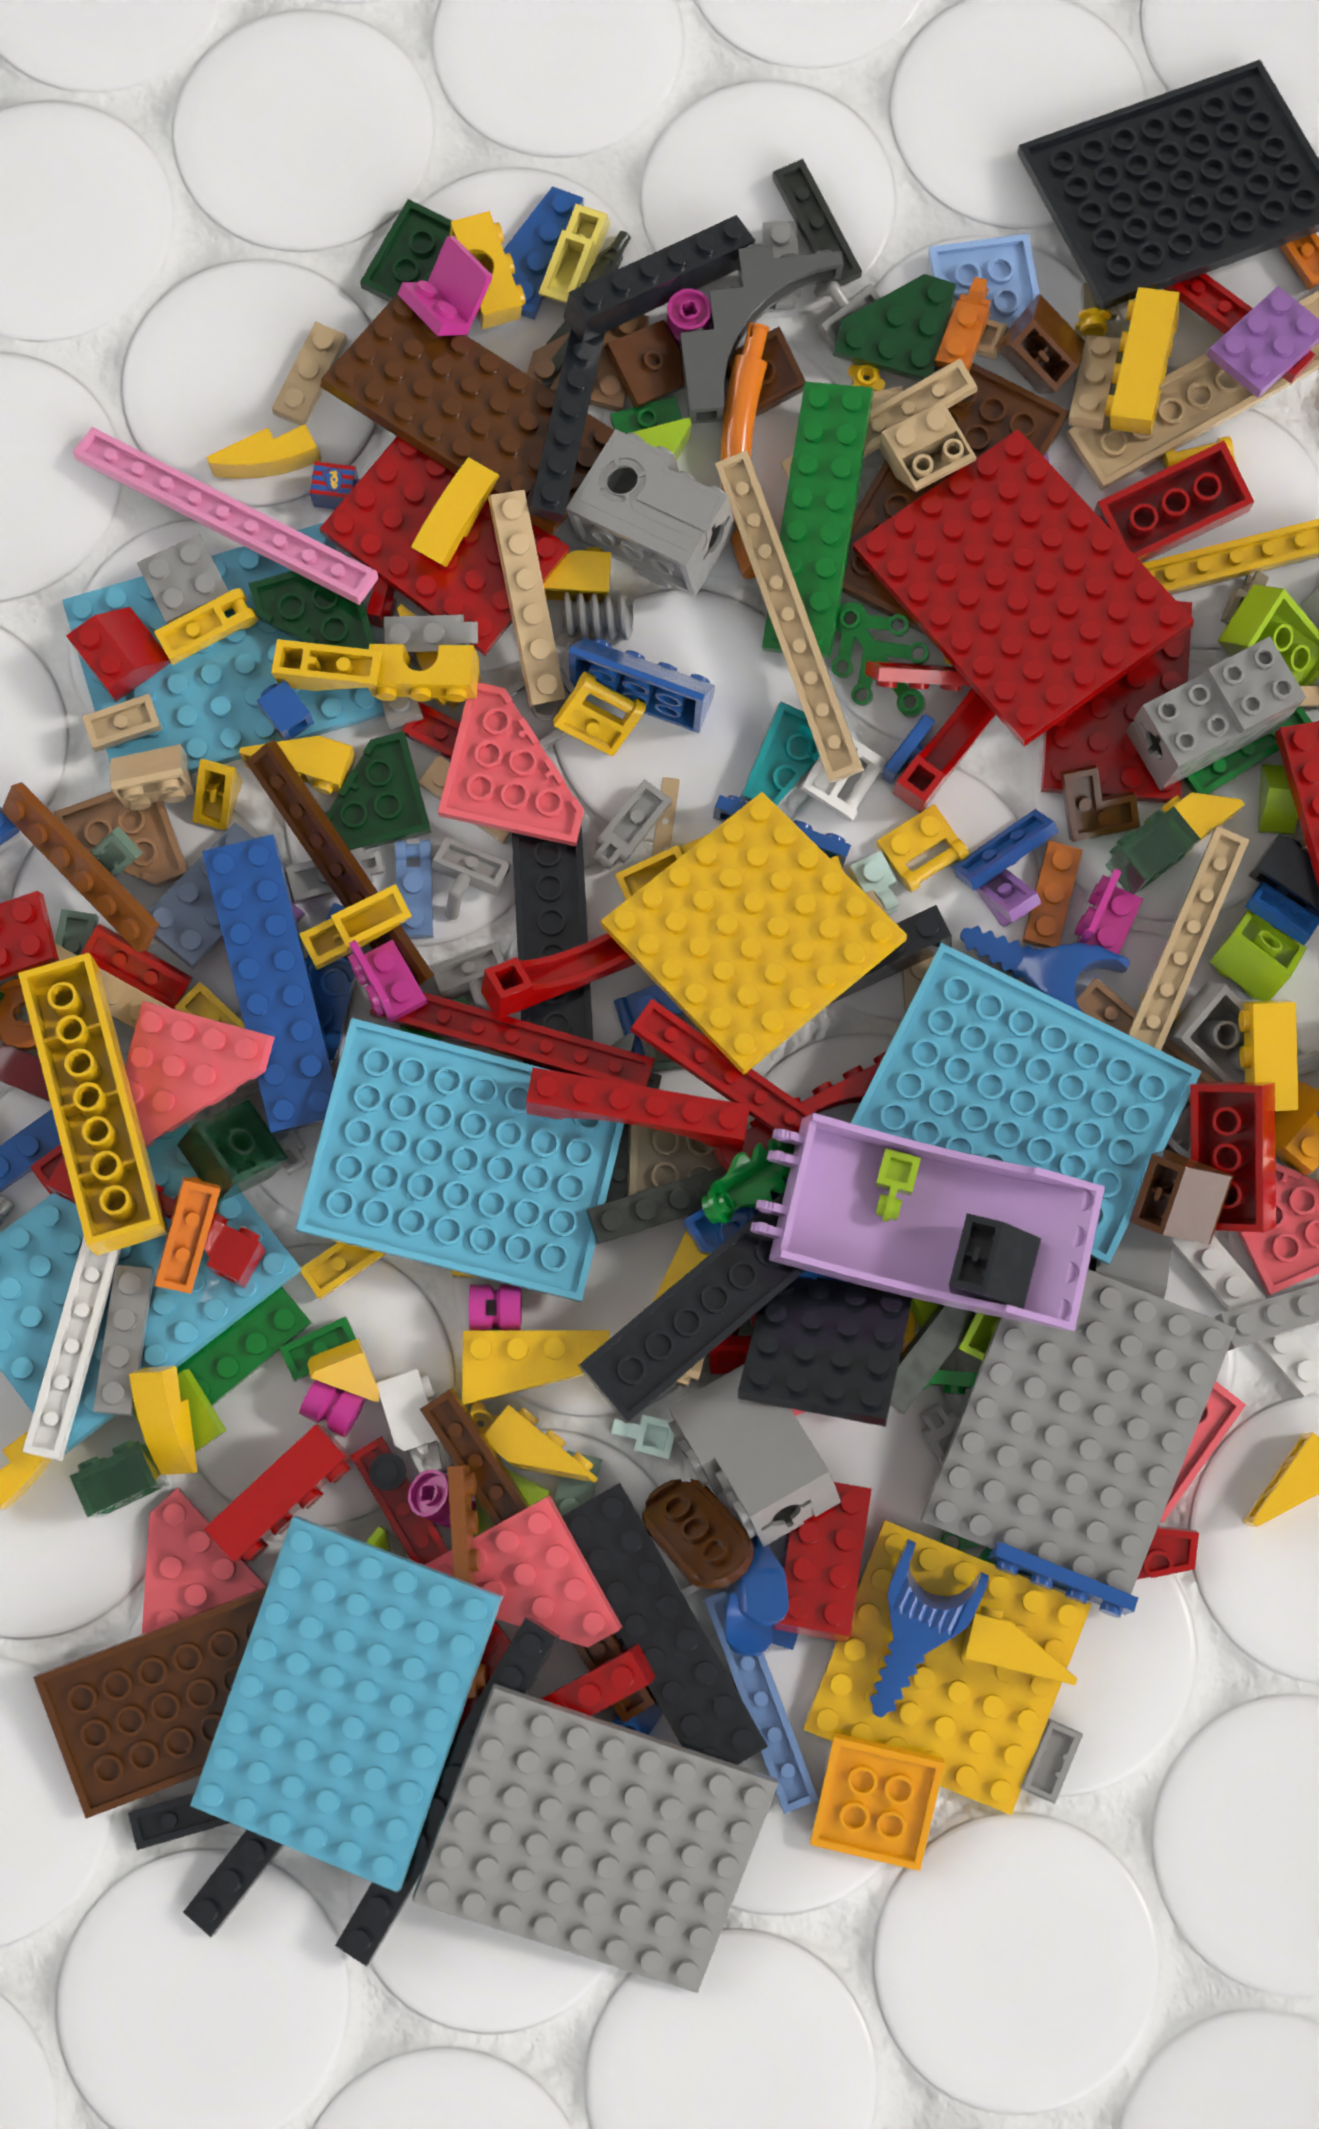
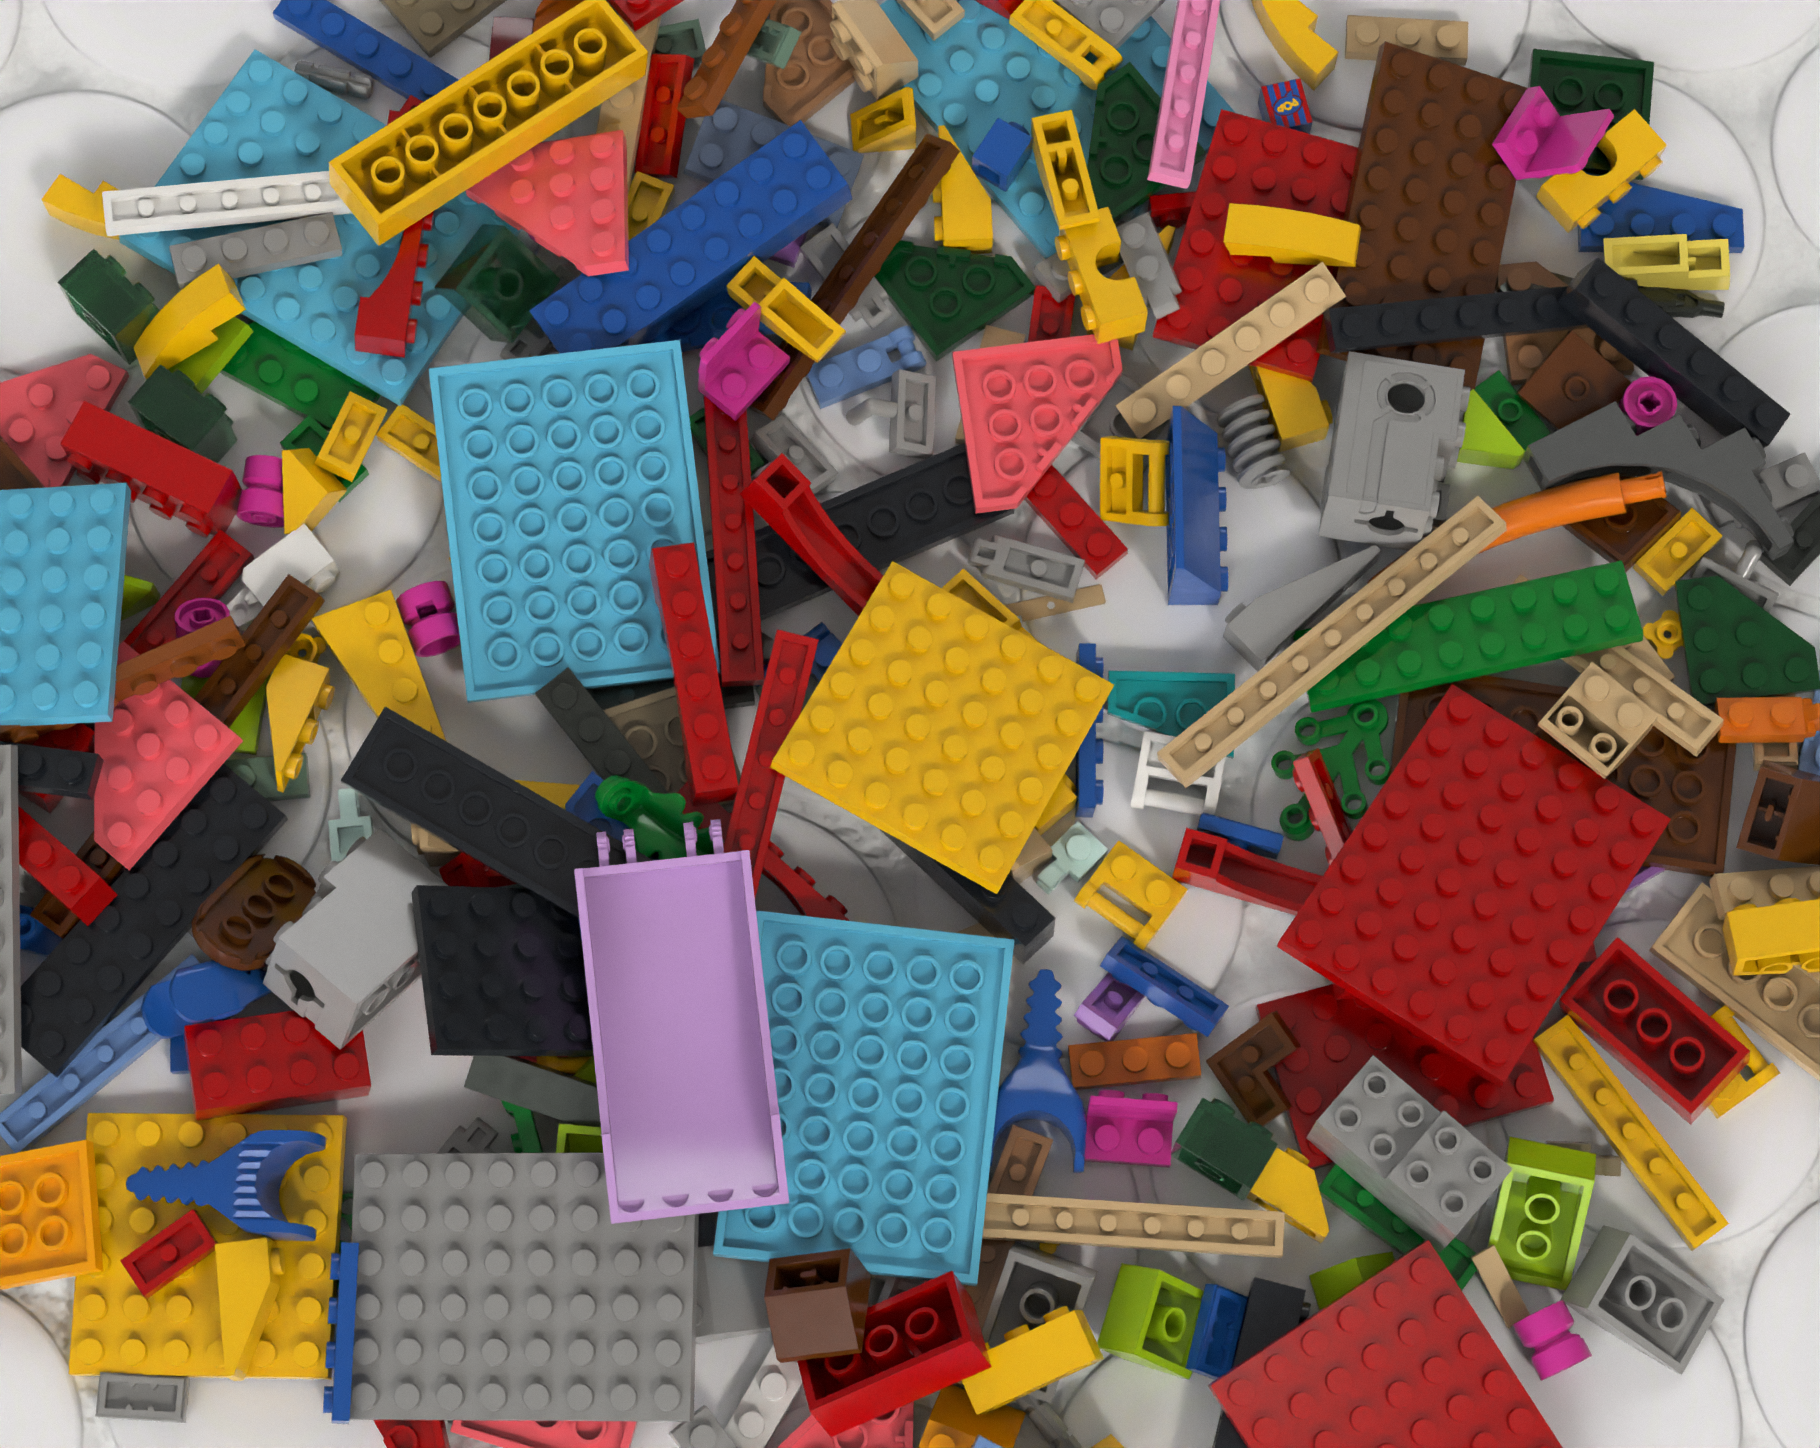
camera: 75 degrees right, 5 degrees down
(187, 1235) = (384, 262): orange piece -> none
(243, 1453) = (180, 414): none -> clear green brick
(315, 1318) = (350, 436): none -> yellow plate
(387, 1471) = (214, 571): black plate -> none
(611, 775) = (1075, 523): none -> red plate
(747, 654) = (1272, 618): none -> light grey slope
(806, 343) = (1677, 551): none -> yellow plate
(896, 1174) = (722, 974): lime plate -> none
(951, 1698) = (170, 1253): none -> red plate
(994, 1262) = (656, 1108): black slope -> none

